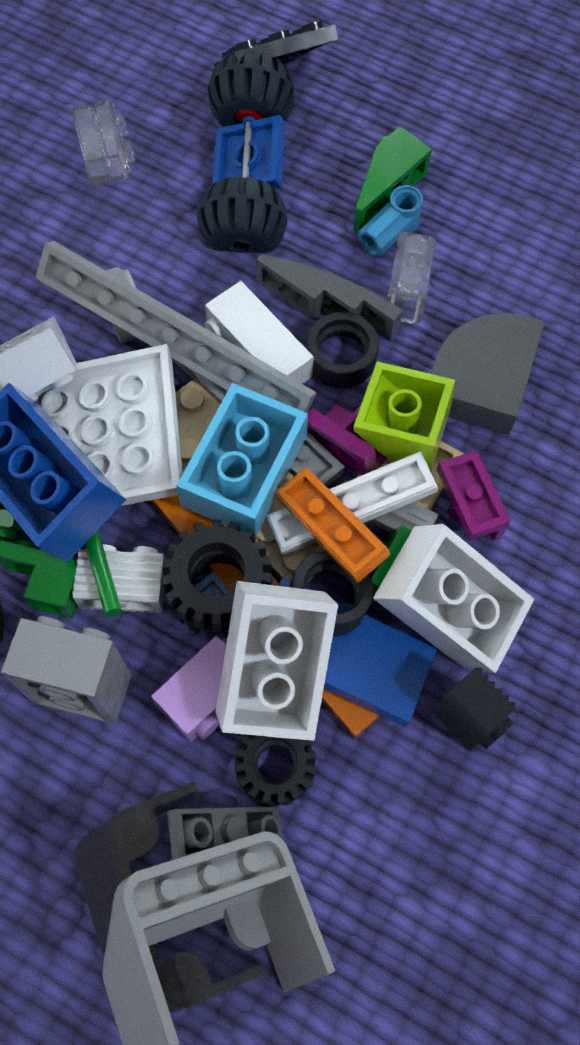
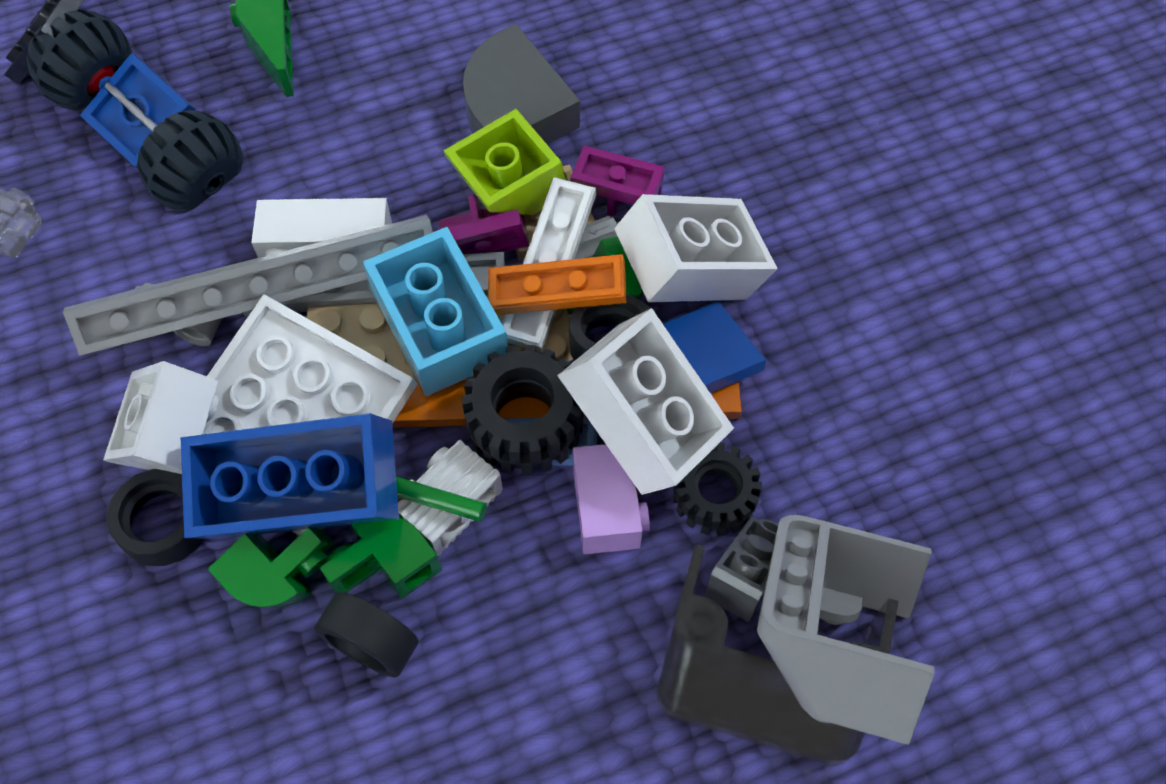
camera: 50 degrees left, 5 degrees down
(67, 669) = (511, 578): light grey brick -> none
(319, 291) = (320, 157): dark grey slope -> none
(343, 325) = (396, 154): black tyre -> none
(398, 216) = (313, 59): dark azure piece -> none
(411, 275) = (380, 84): clear brick -> none
(476, 711) = (797, 304): black brick -> none

